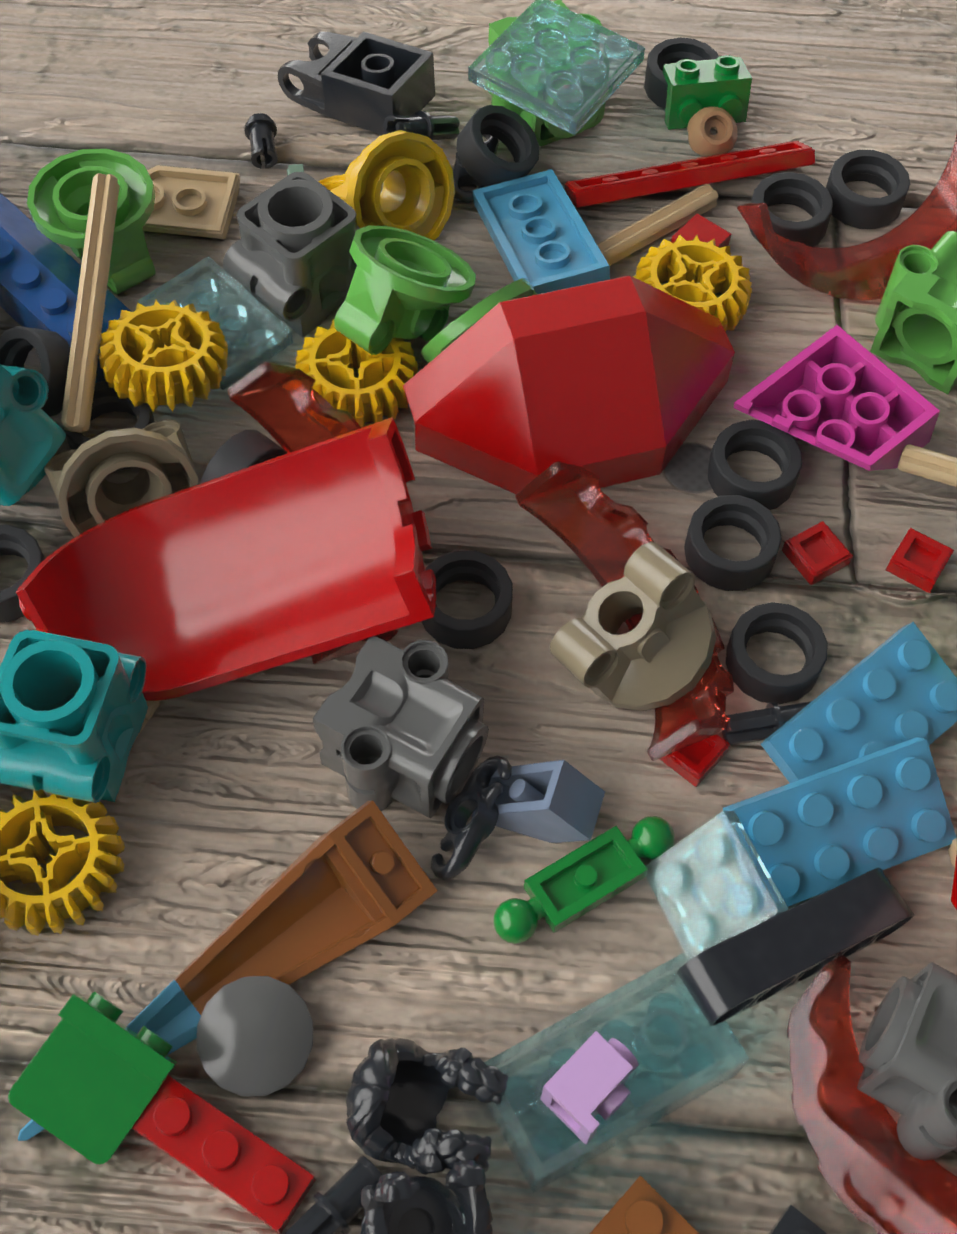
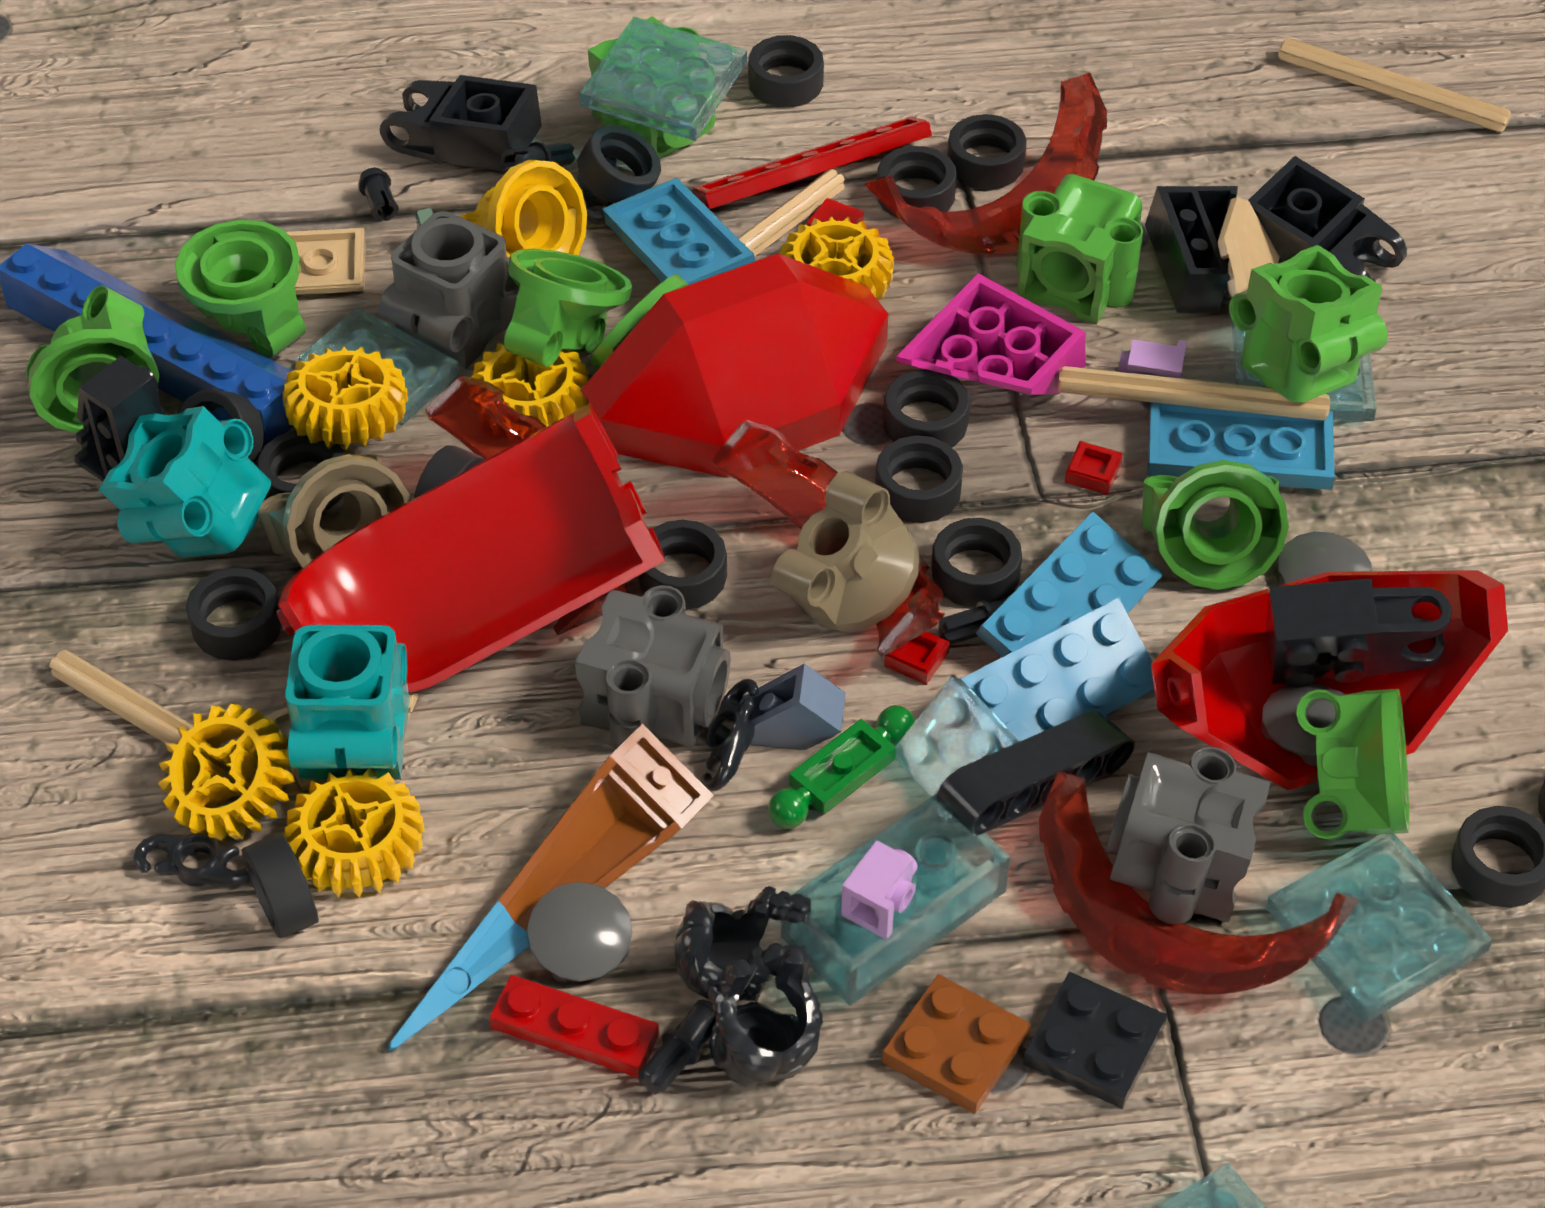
camera: 10 degrees left, 10 degrees down
(90, 304) = (266, 360): tan axle -> none
(92, 1077) = (450, 975): green bracket -> none
(699, 133) = (817, 129): medium nougat plate -> none
(704, 84) = (813, 84): green bracket -> none
(817, 553) = (998, 476): red tile -> none

